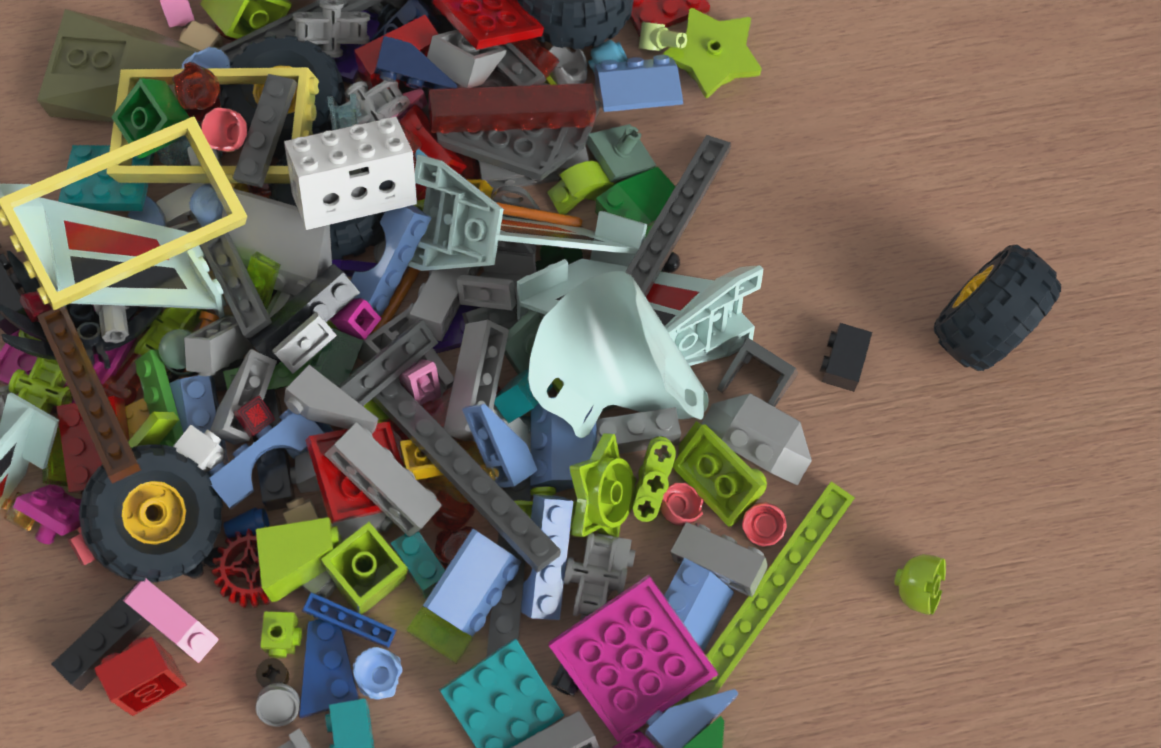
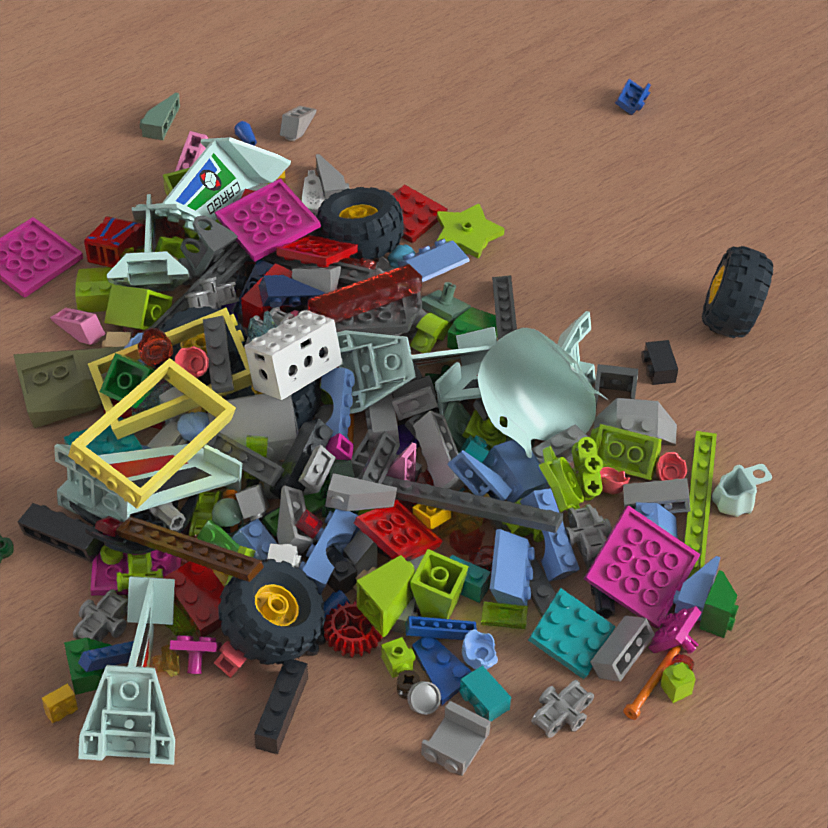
camera: 25 degrees left, 20 degrees down
(140, 676) = (324, 710): red brick -> none
(171, 620) = (324, 674): bright pink slope -> none
(383, 479) = (419, 526): light grey brick -> none
(657, 37) = (425, 234): yellowish green pin -> none
(825, 596) = (738, 490): none -> light aqua piece
(921, 582) = (786, 461): lime cylinder -> none

